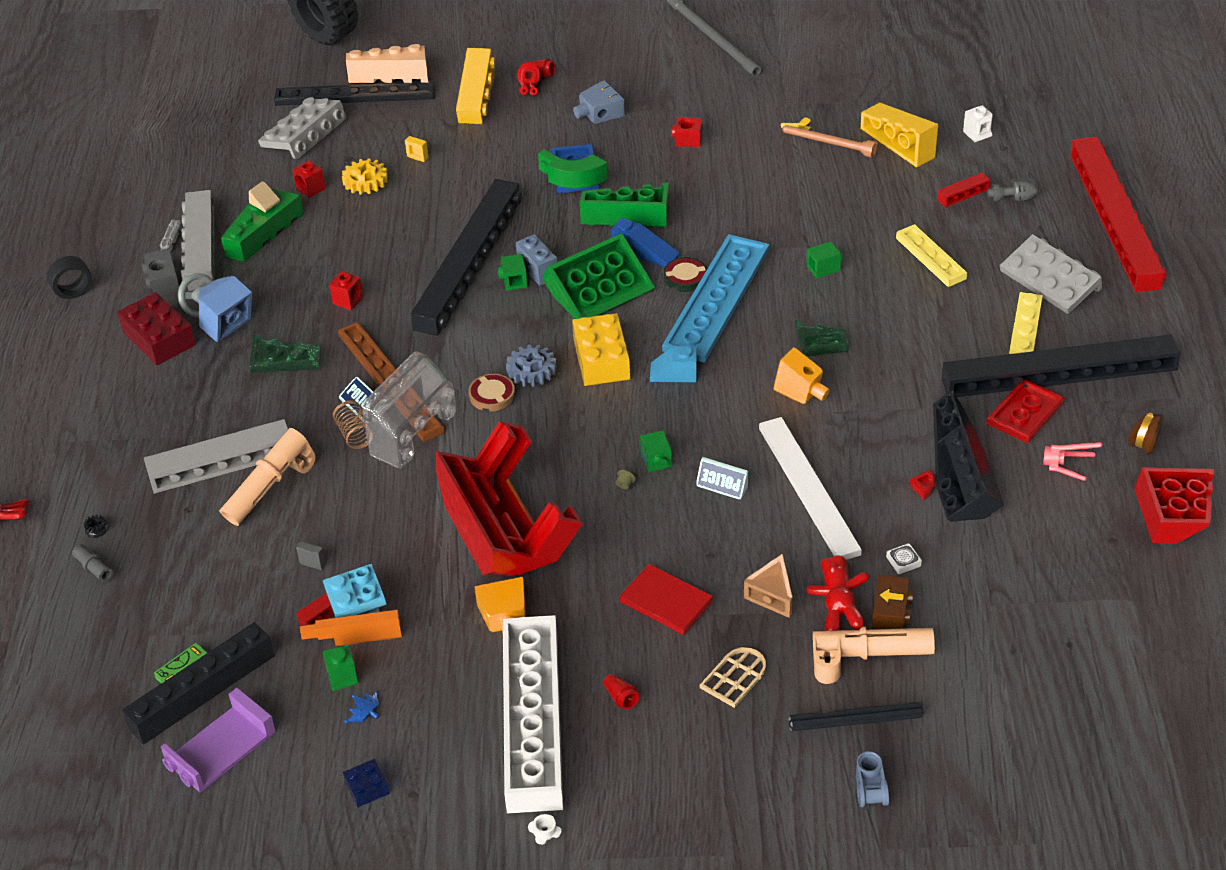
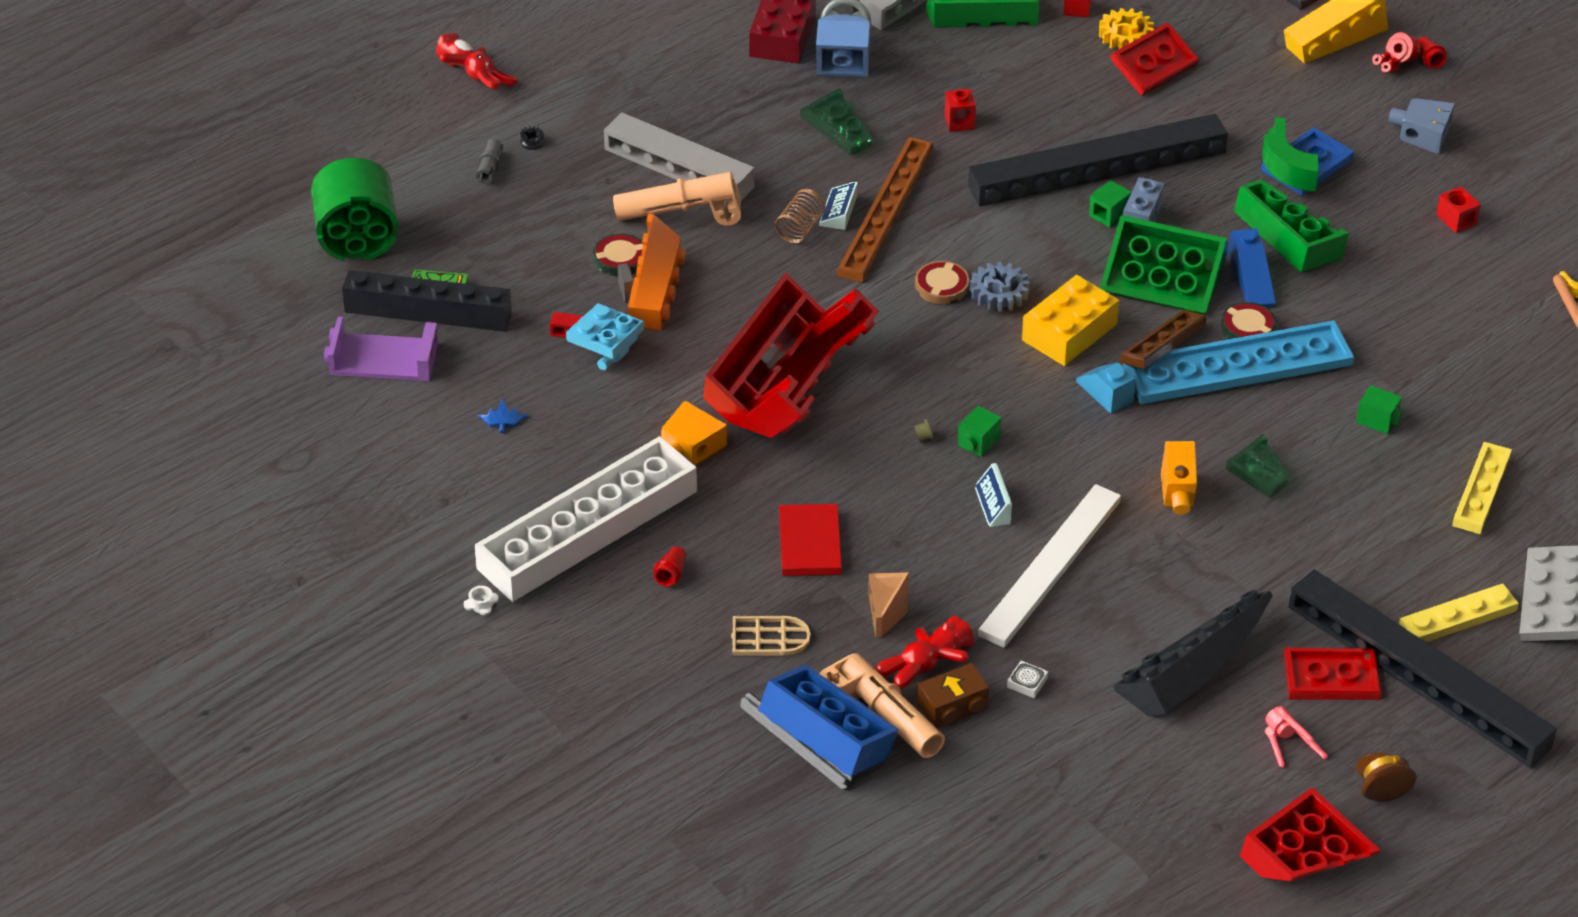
camera: 50 degrees right, 0 degrees up
(64, 667) = (354, 209): none -> green brick
(273, 544) = (617, 250): none -> tile
(317, 527) = (656, 274): none -> orange wedge
(340, 667) = (522, 374): green brick -> none
(355, 628) = (573, 358): orange piece -> none
(366, 783) = (425, 463): clear blue piece -> none
(404, 406) = (841, 225): clear windscreen -> none
(407, 179) = (1154, 58): none -> red tile
(416, 149) = (1205, 39): yellow plate -> none
(665, 317) = (1163, 339): none -> reddish brown tile
(867, 683) = (828, 720): none -> blue brick
(871, 784) = (726, 785): sand blue piece -> none
(923, 484) = (1143, 645): red tile -> none

